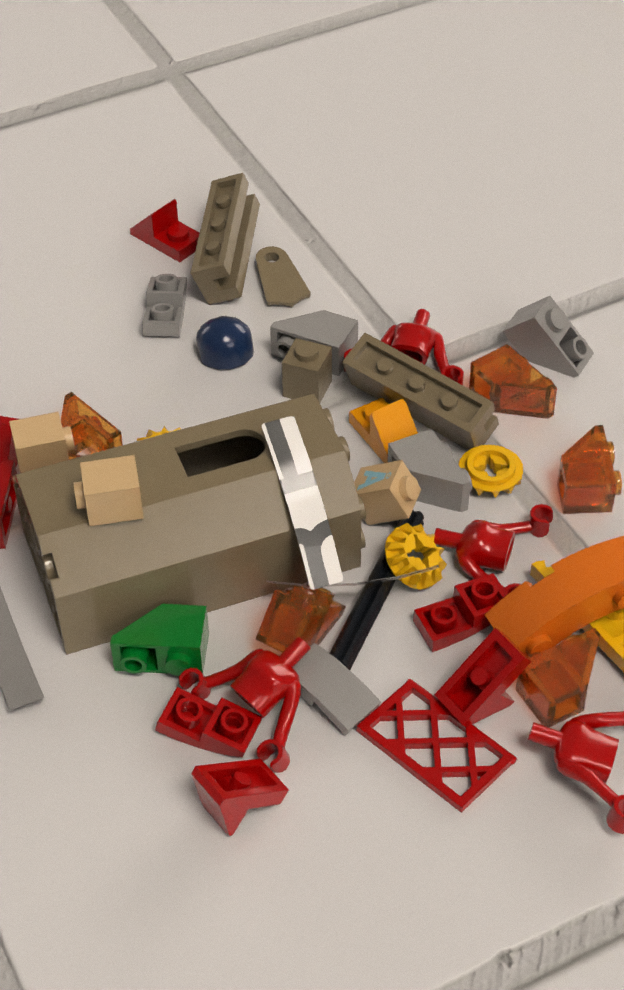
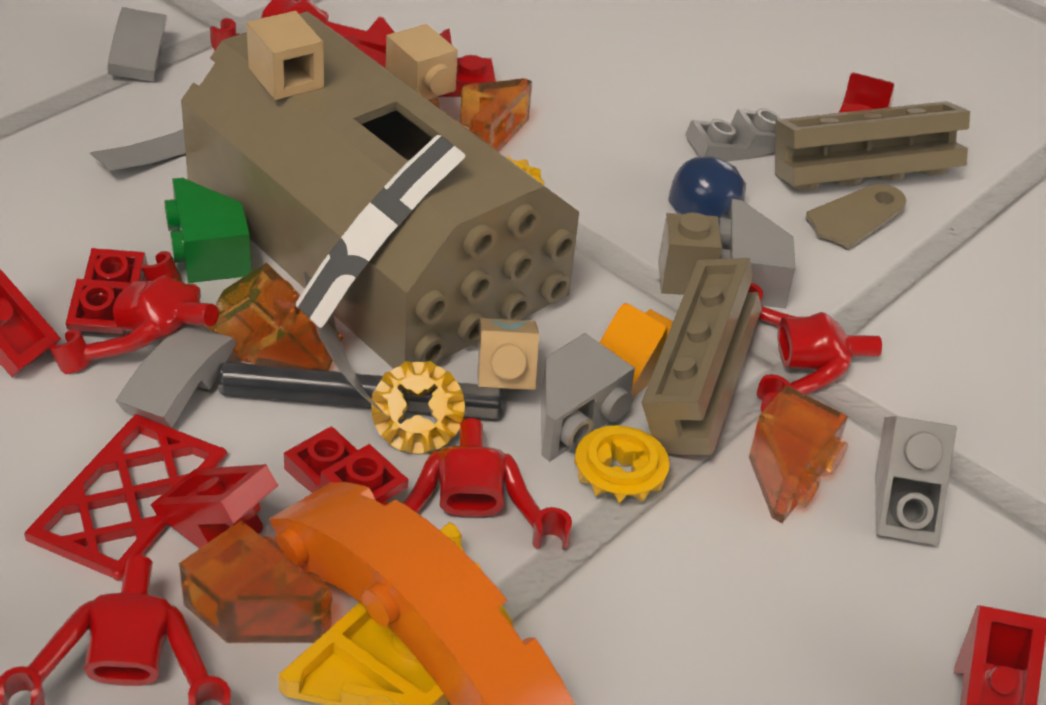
camera: 65 degrees right, 5 degrees down
(587, 475) = (662, 561): clear orange slope -> none

